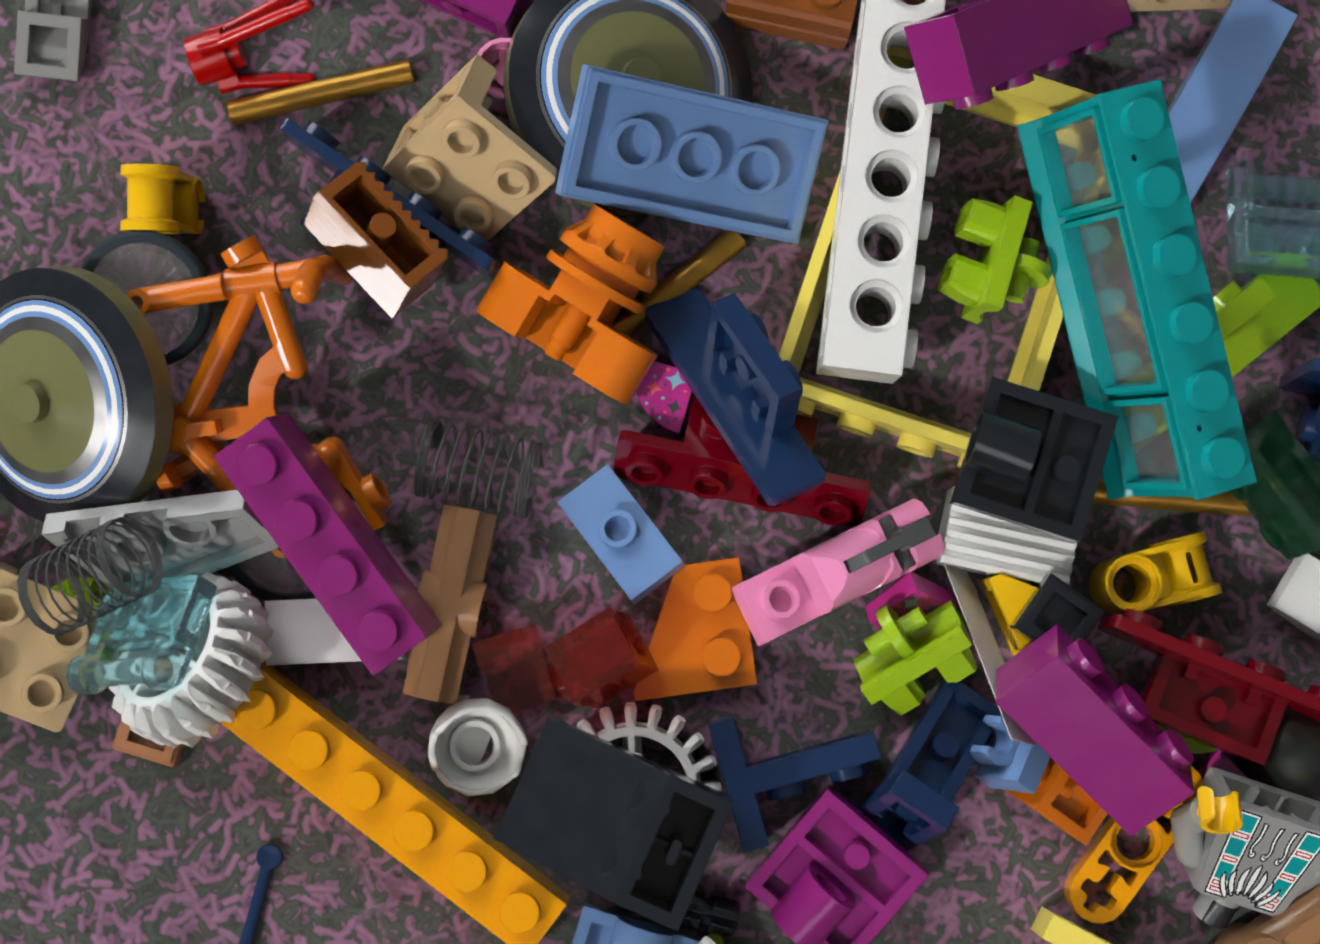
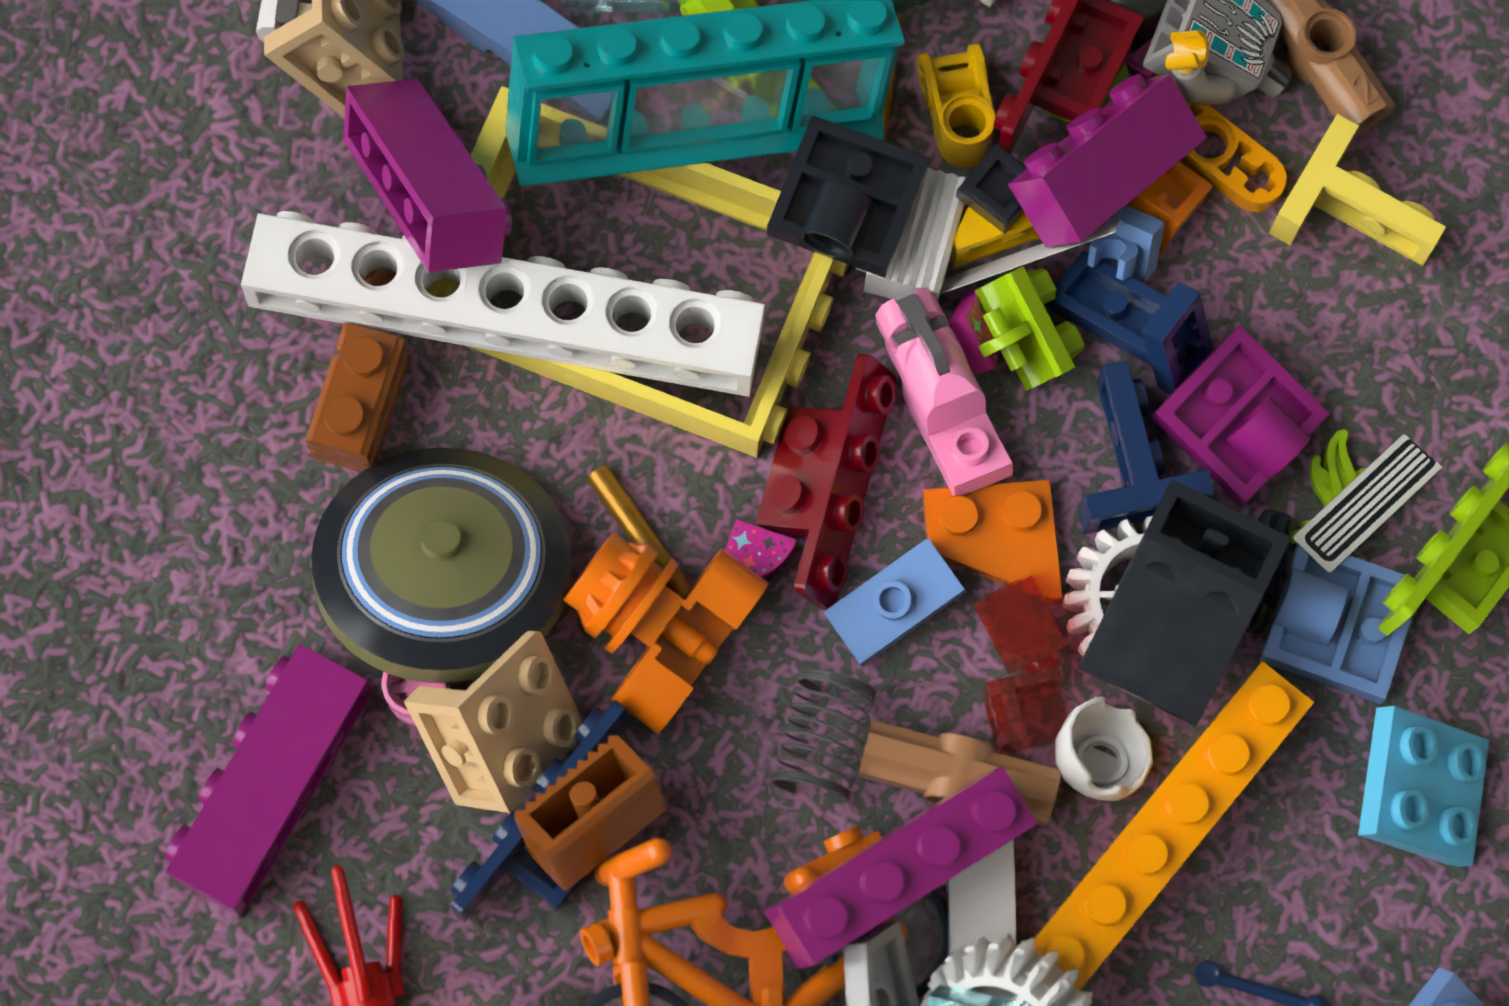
camera: 90 degrees left, 10 degrees down
(320, 92) = (412, 888): pearl gold bar -> none
(690, 155) = (521, 502): medium blue tile -> none
(741, 387) = (757, 467): dark blue bracket -> none
(1005, 260) = (650, 214): lime hips -> none

